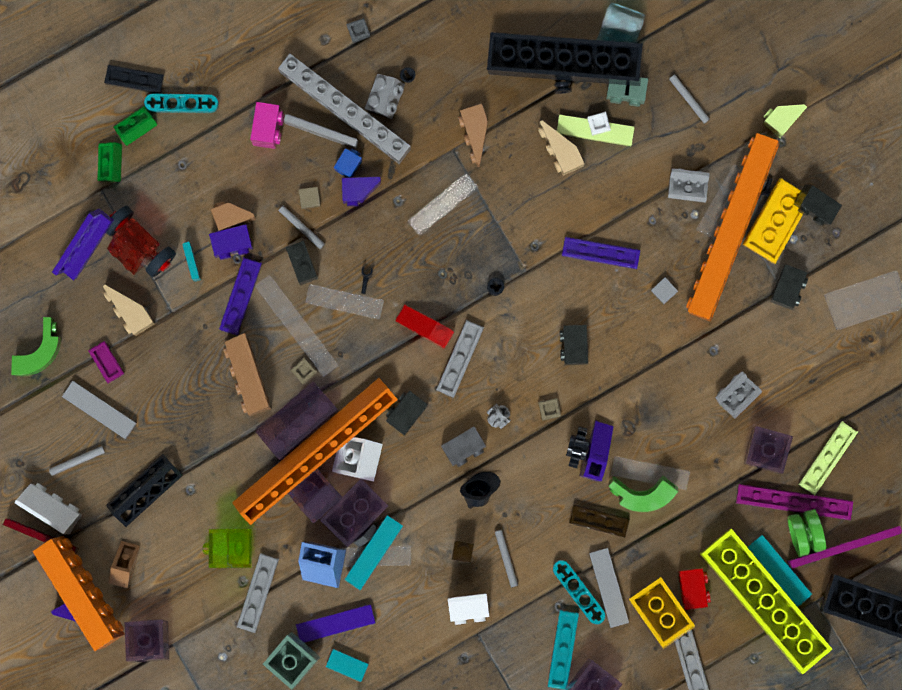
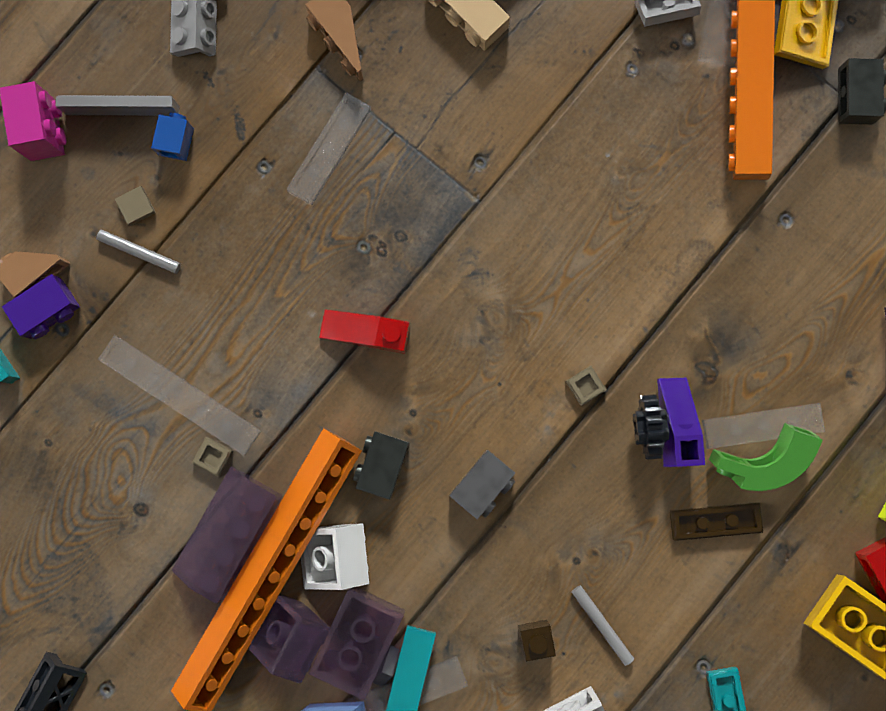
camera: 20 degrees left, 0 degrees up
(240, 296) = (83, 381): dark purple tile -> none
(247, 375) = (130, 492): medium nougat slope -> none
(301, 263) = (153, 301): pearl dark grey brick -> none
(344, 108) = (139, 61): light grey brick -> none
(344, 301) = (236, 336): clear tile -> none
(358, 189) = (200, 167): dark purple slope -> none
(365, 280) = (256, 294): black hand -> none
(460, 358) = (431, 359): light grey tile -> none
(480, 488) = (528, 537): black piece -> none
(498, 416) = (517, 422): light grey gear -> none
(499, 282) = (448, 229): black bush -> none
(575, 345) = (589, 280): pearl dark grey brick -> none
(581, 590) = (726, 636): teal beam -> none
(601, 253) = (577, 138): dark purple tile -> none
(609, 588) = (766, 614): light grey tile -> none
(664, 291) = (686, 159): light grey tile -> none
(738, 394) = (849, 269): light grey bracket -> none

